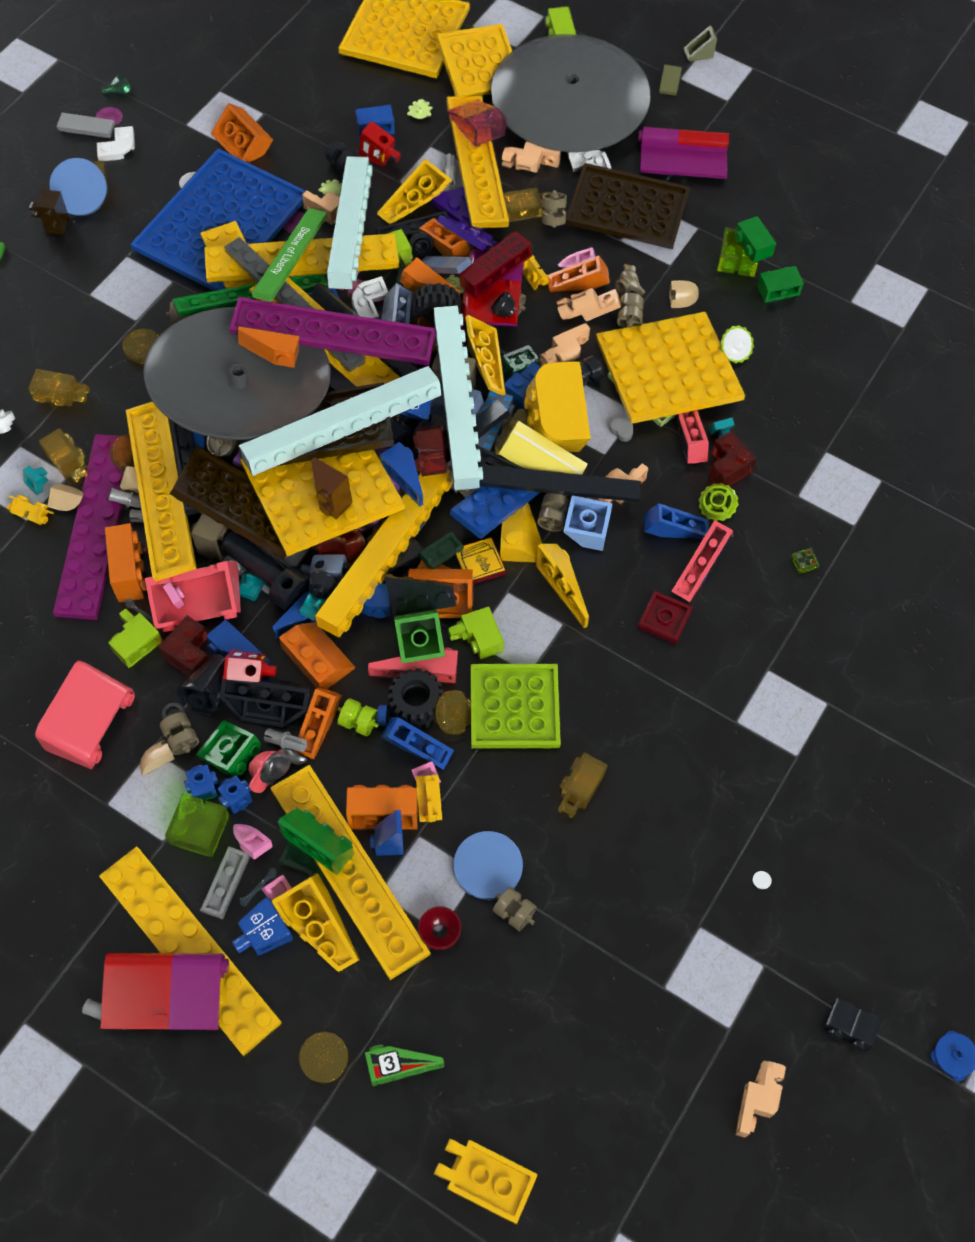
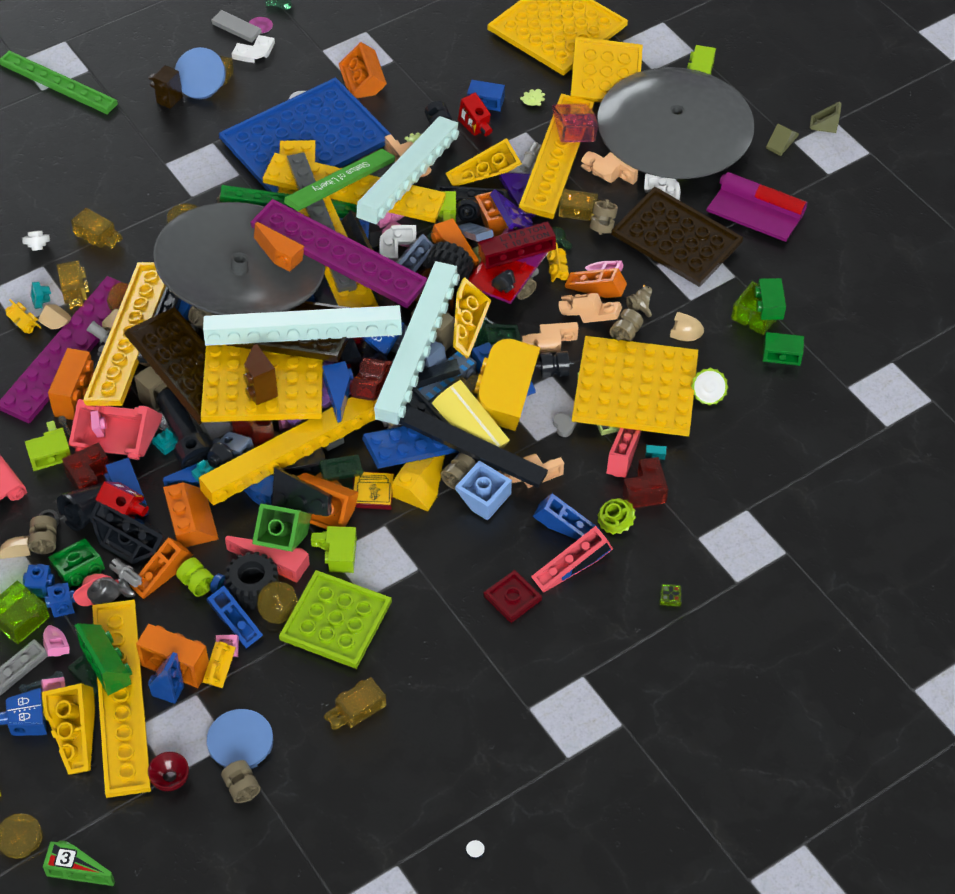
camera: 25 degrees right, 10 degrees down
(558, 571) = (436, 523): yellow wedge -> none

